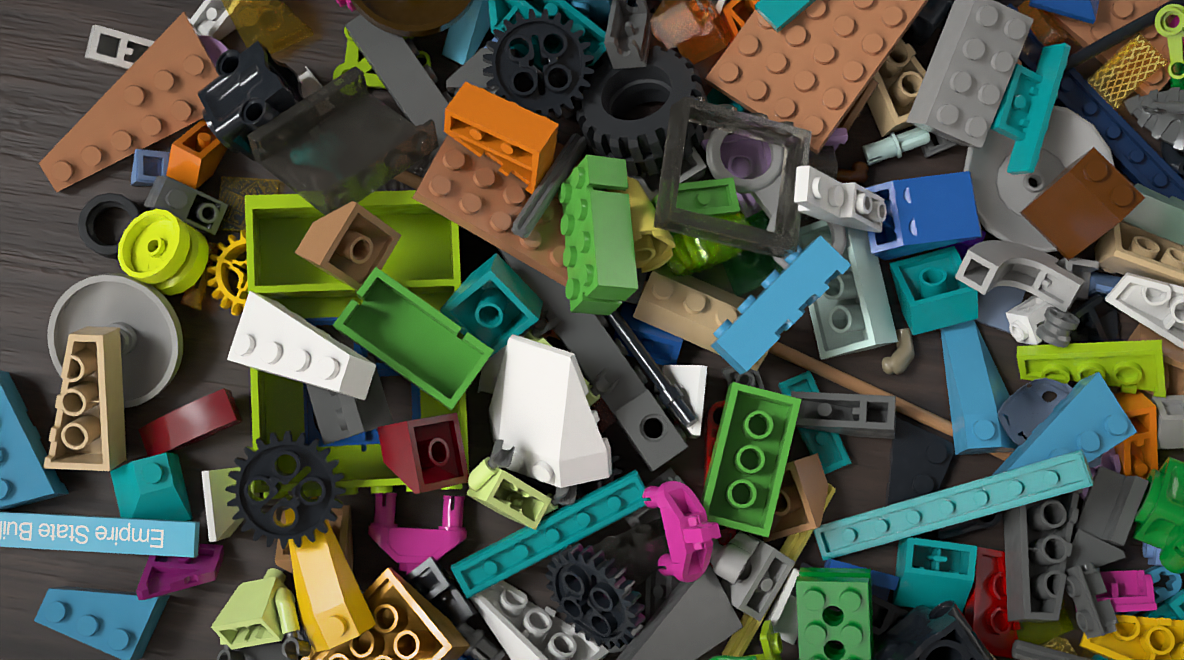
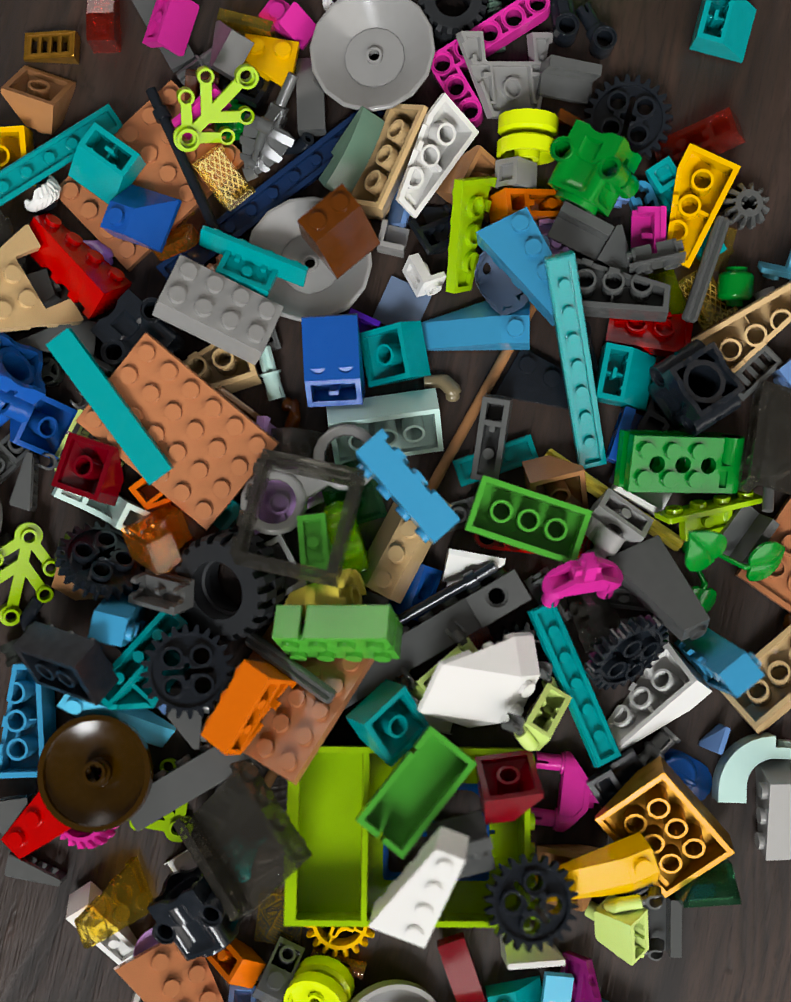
camera: 85 degrees left, 5 degrees up
(348, 244) = (333, 841): medium nougat slope -> none
(838, 202) = (323, 431): white slope -> none
(1019, 266) = (382, 283): light grey arch -> none
(1057, 327) = (435, 259): dark grey wheel -> none

